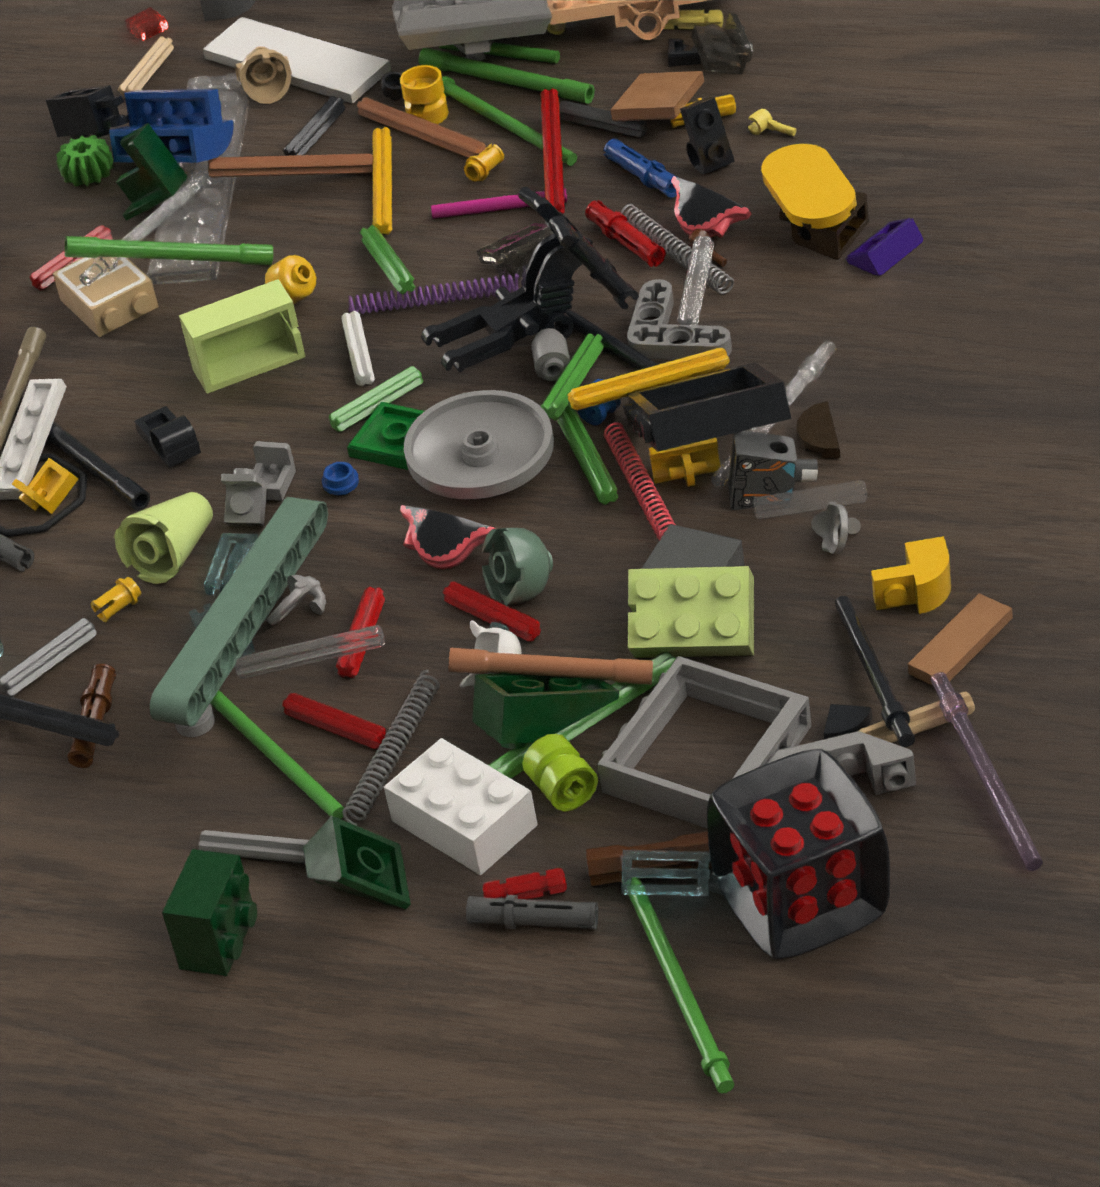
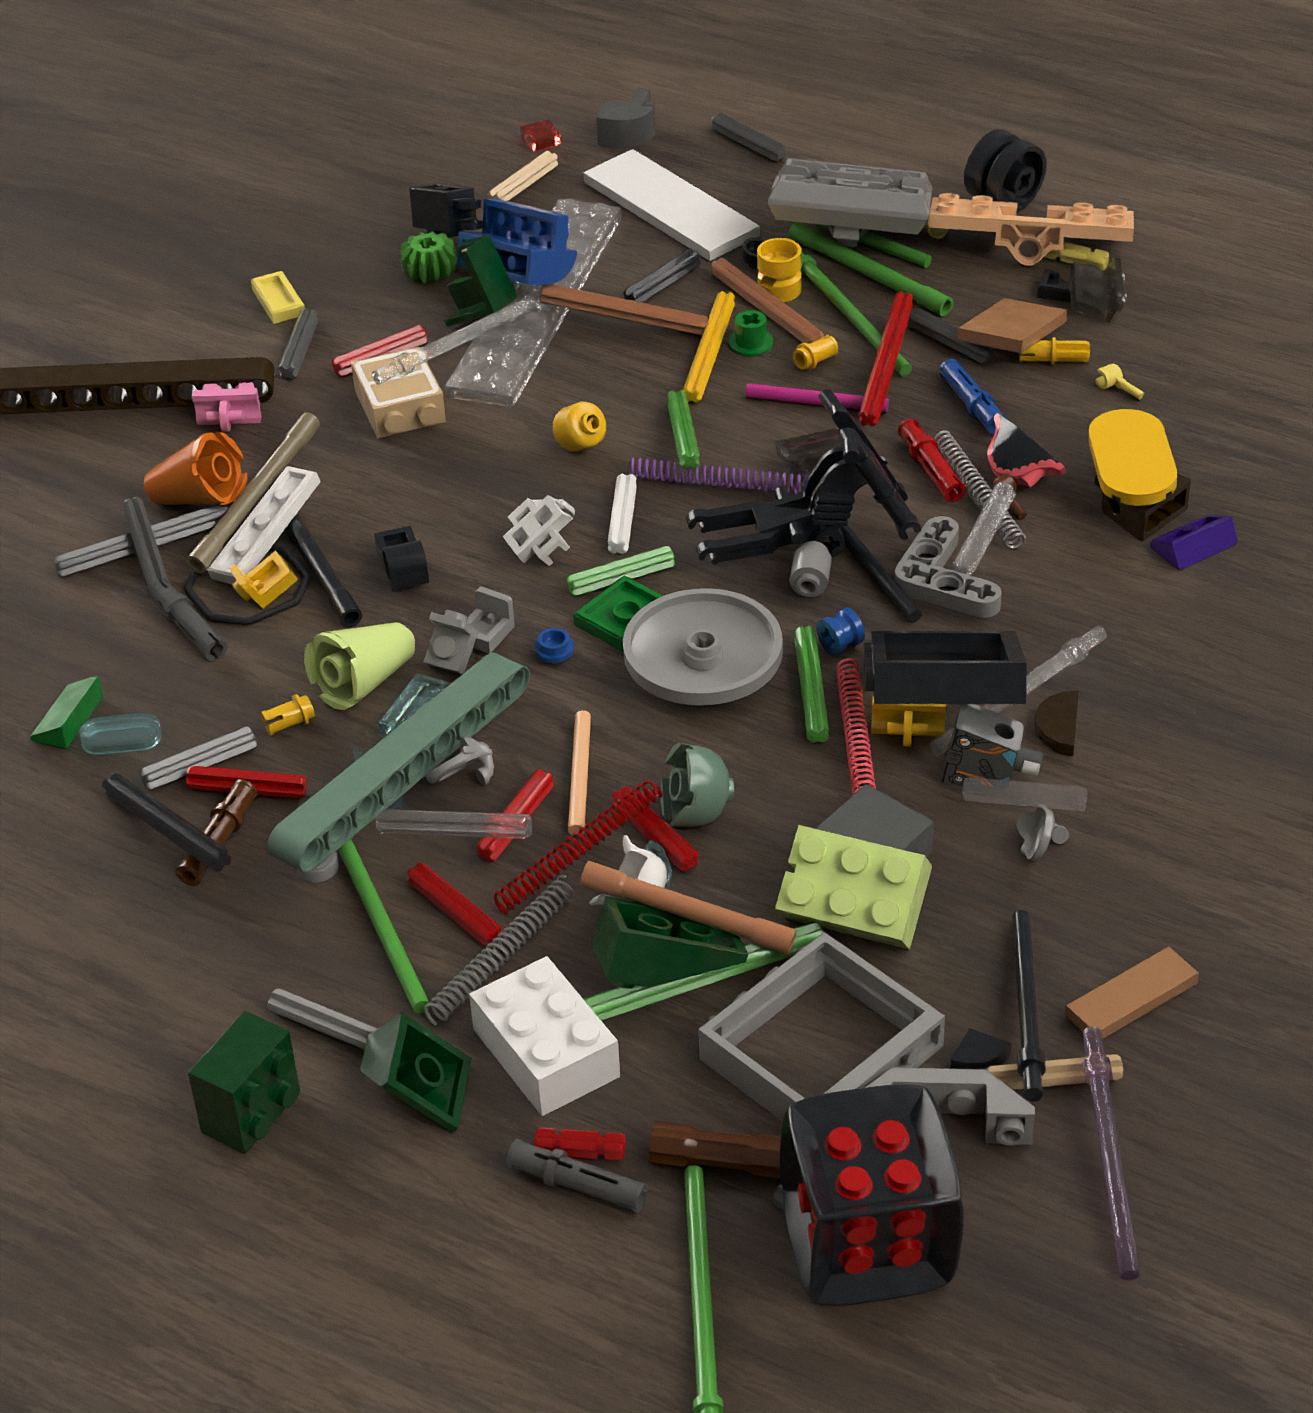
camera: 10 degrees right, 0 degrees up
(80, 669) = (265, 782): none -> red axle
(94, 247) = (397, 348): bright green piece -> none
(242, 336) = (506, 467): yellowish green piece -> none
(264, 75) = (631, 212): tan helmet -> none
(281, 384) = (529, 532): none -> white piece
(404, 582) = (579, 772): none -> light nougat bar
(417, 161) = (750, 334): none -> green piece
(418, 665) = (638, 804): none -> red piece
(440, 537) = (630, 737): hat -> none
(560, 772) = (659, 1026): lime wheel -> none
(572, 375) = (824, 598): bright green axle -> none
(646, 378) = (899, 620): yellow axle -> none
(701, 873) = (723, 1190): clear light blue tile -> none
(707, 136) = (1047, 378): black plate -> none
(921, 581) = (1113, 917): yellow brick -> none

